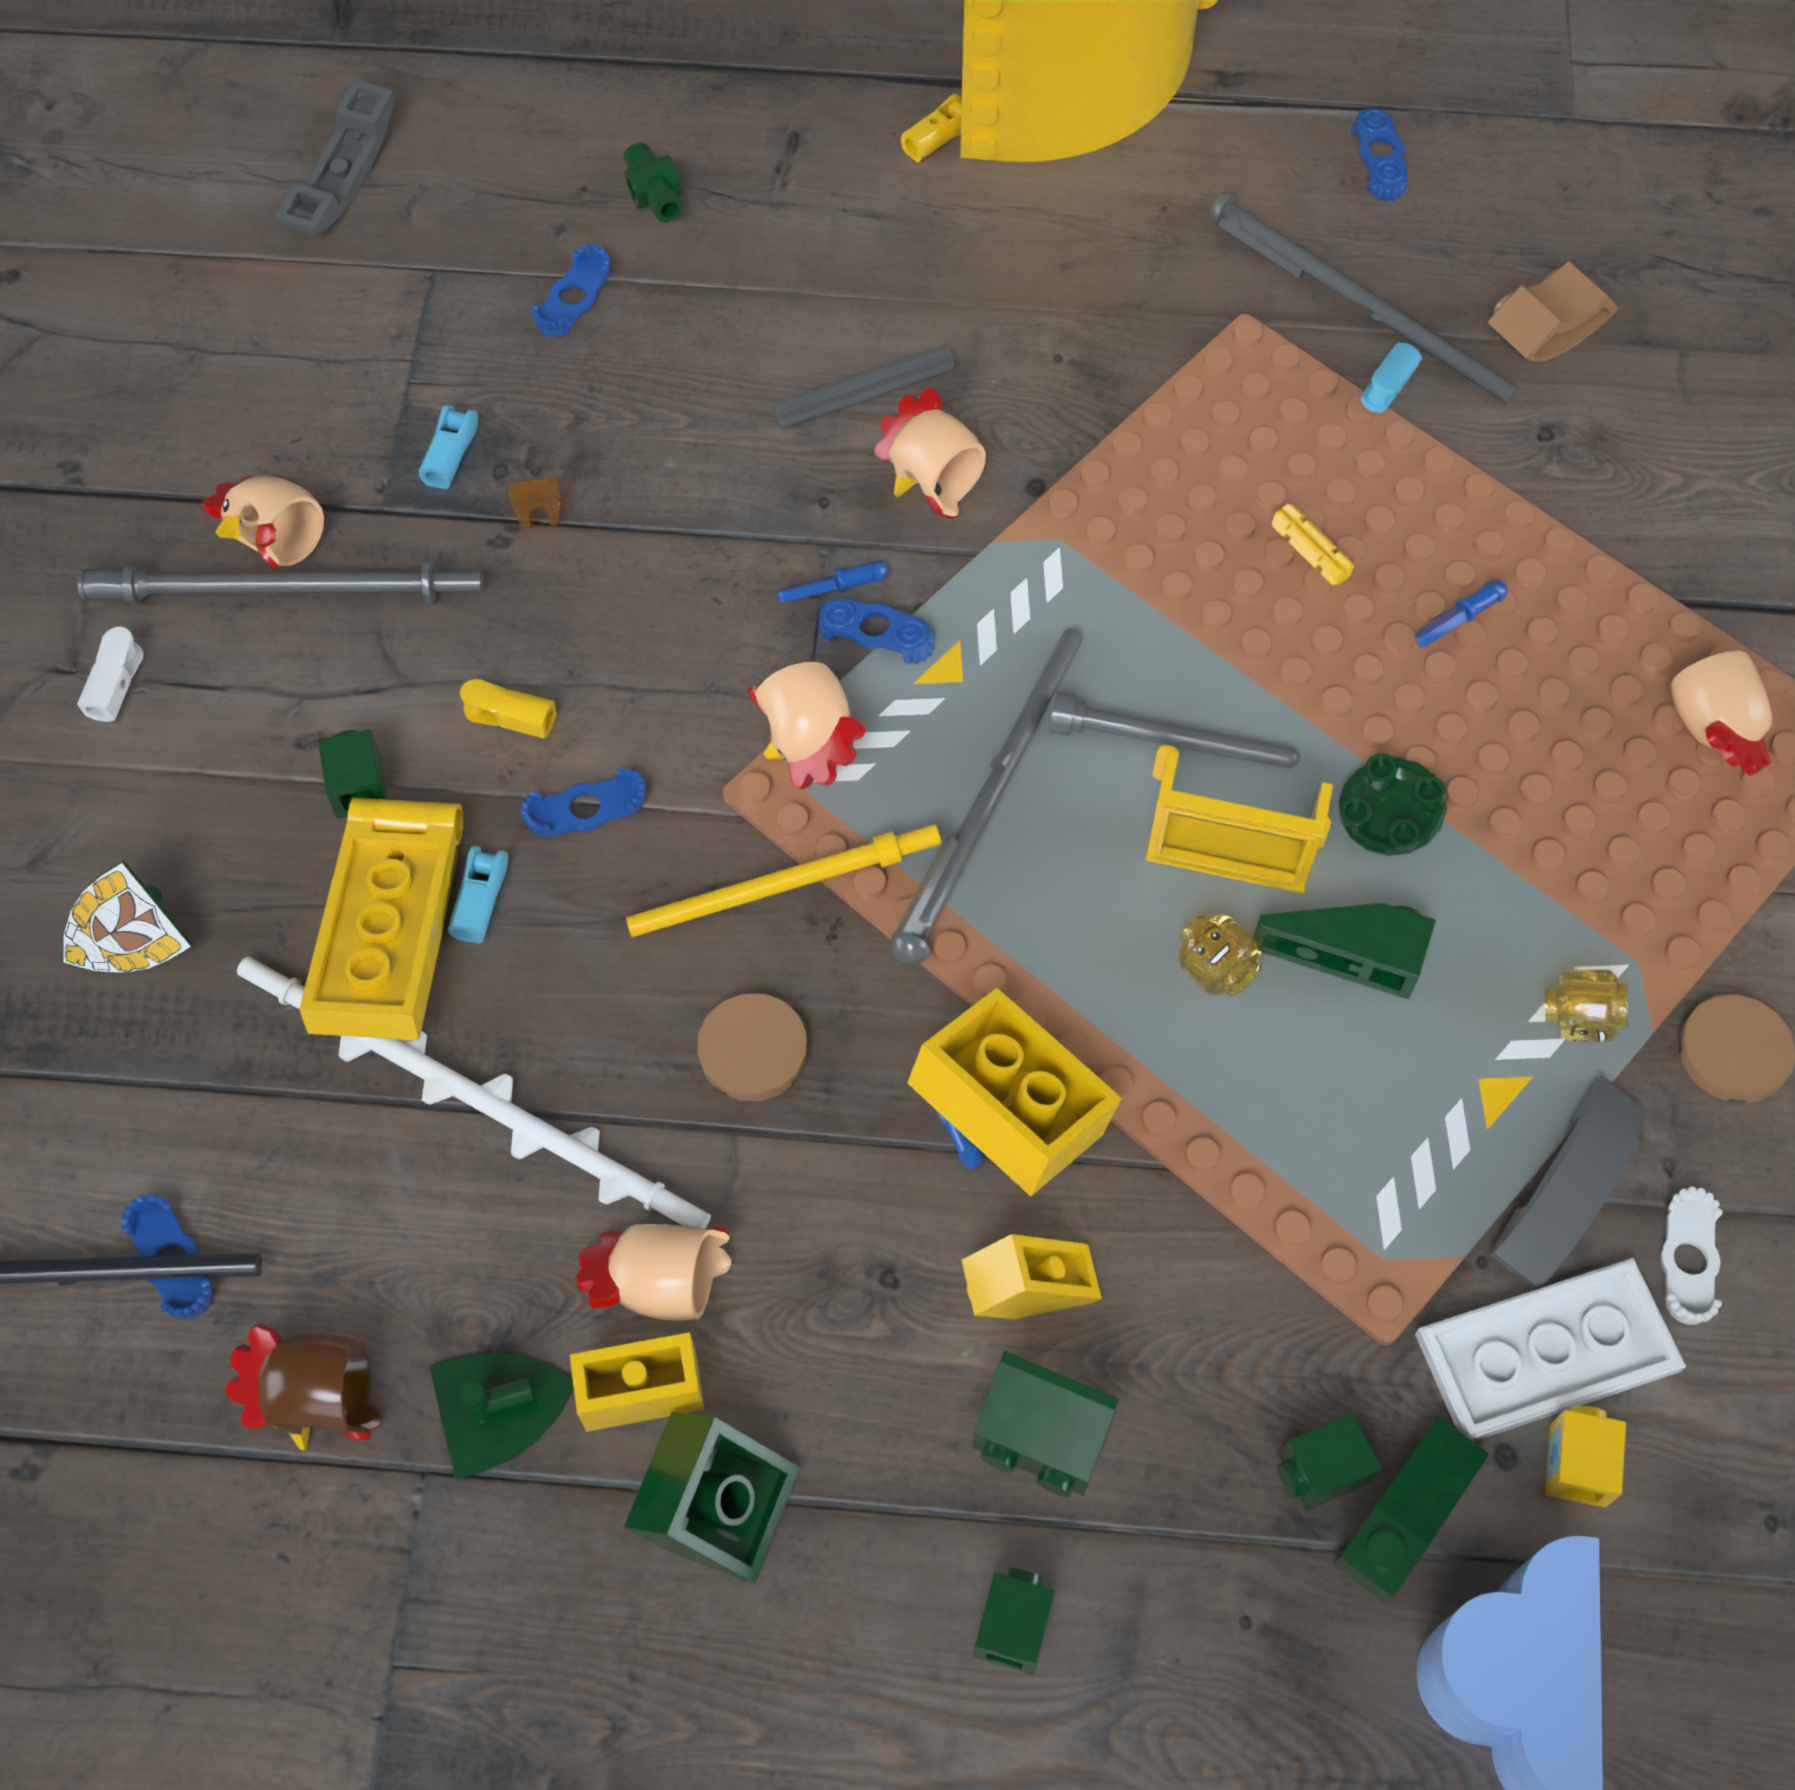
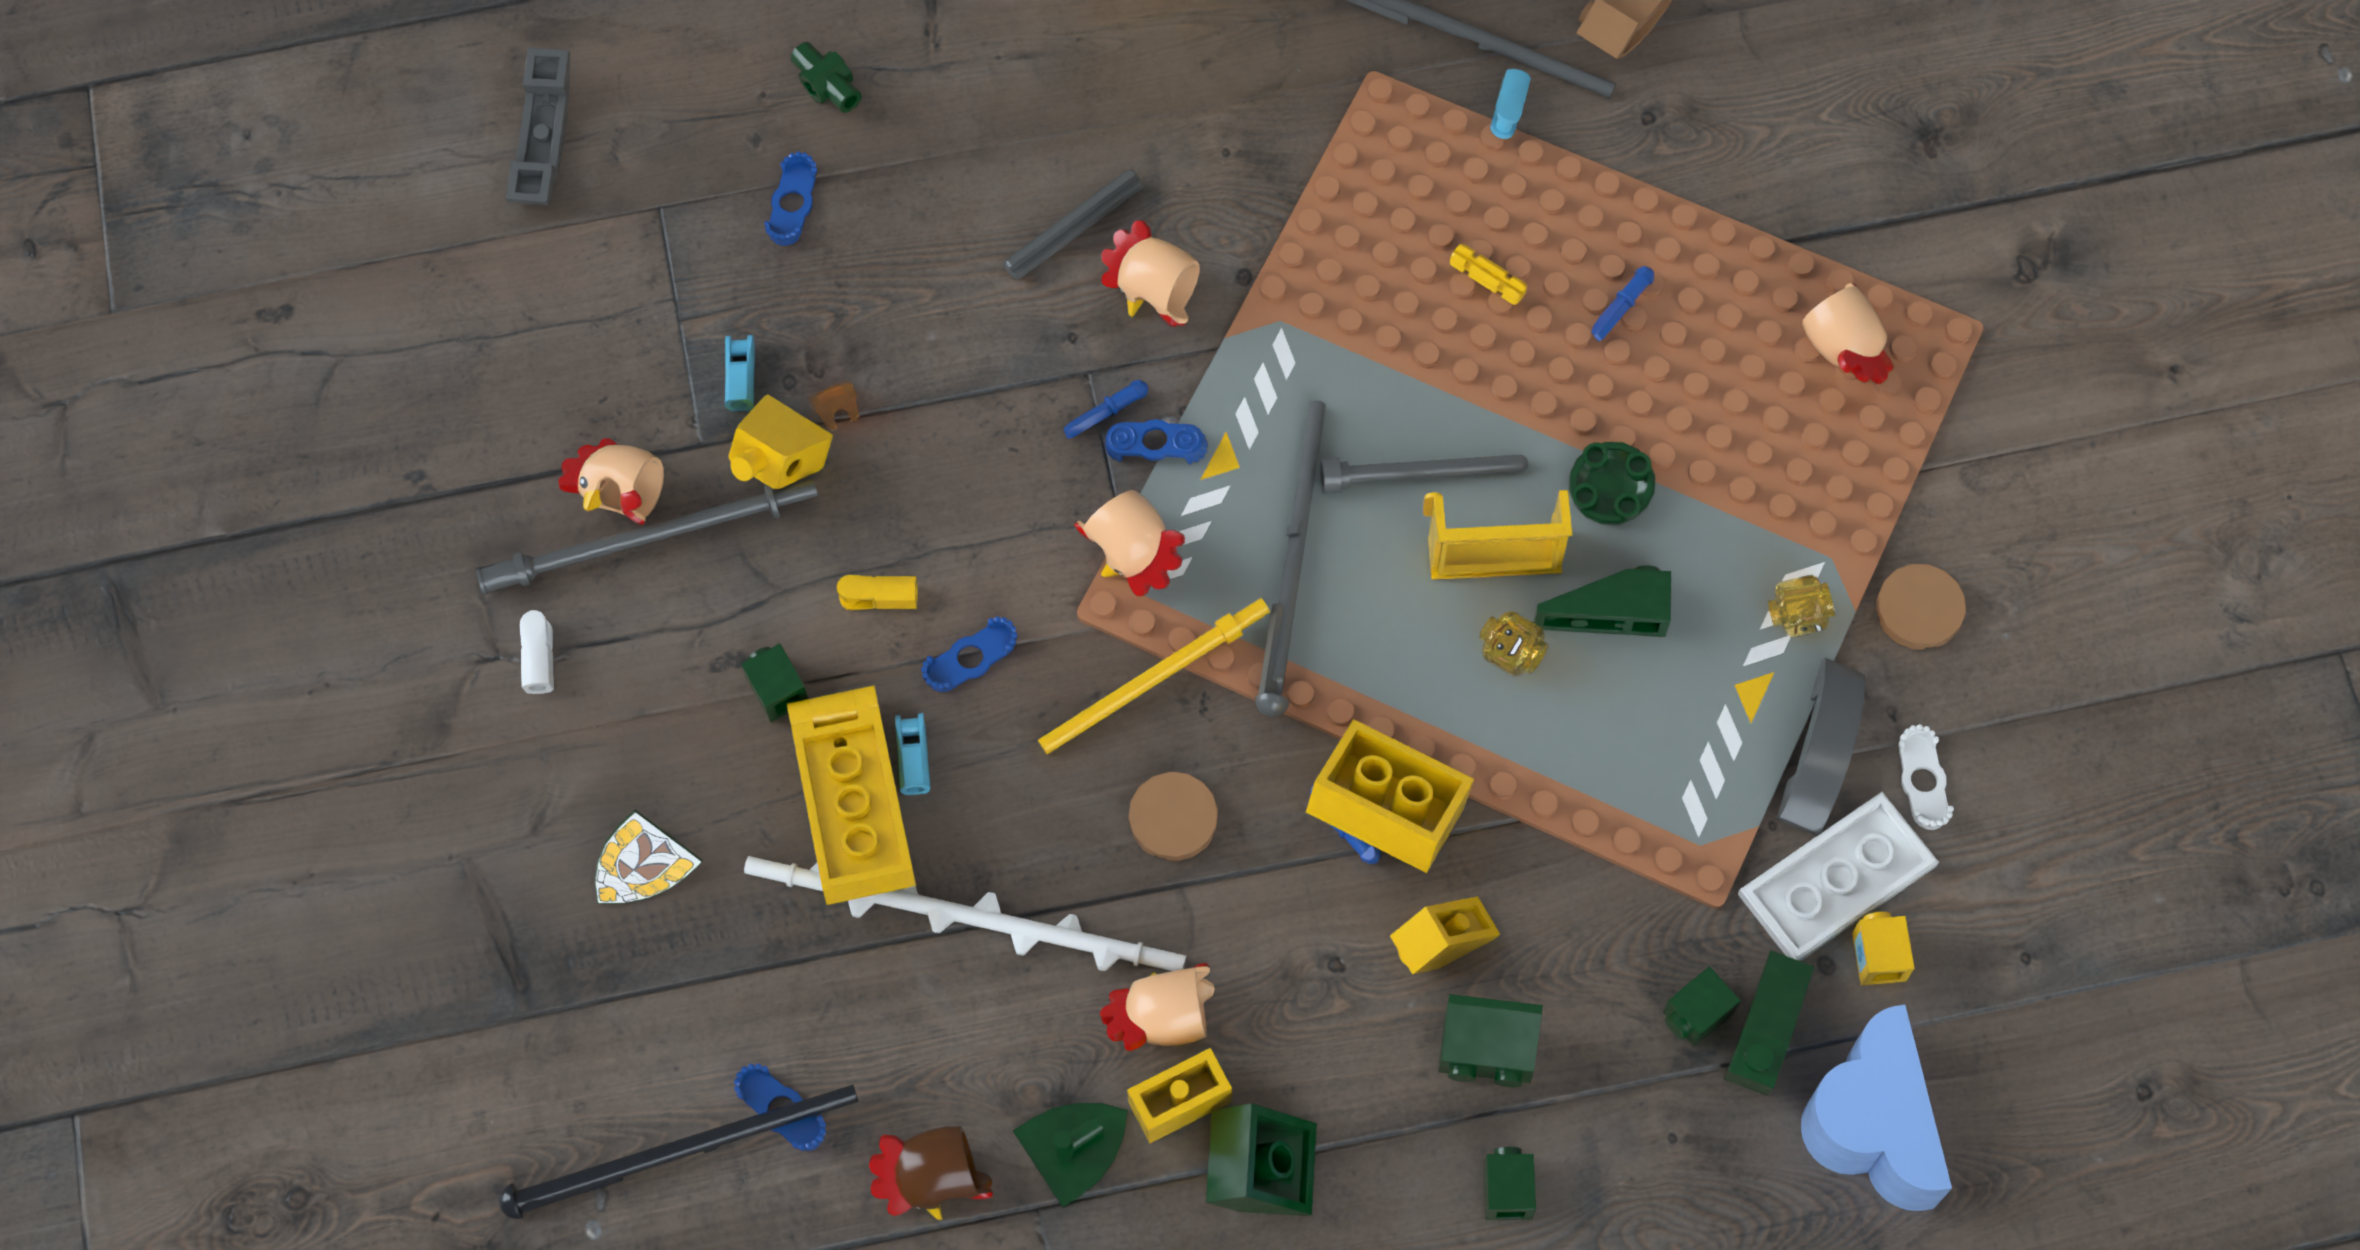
camera: 15 degrees left, 5 degrees up
(452, 523) = (777, 445): none -> yellow torso

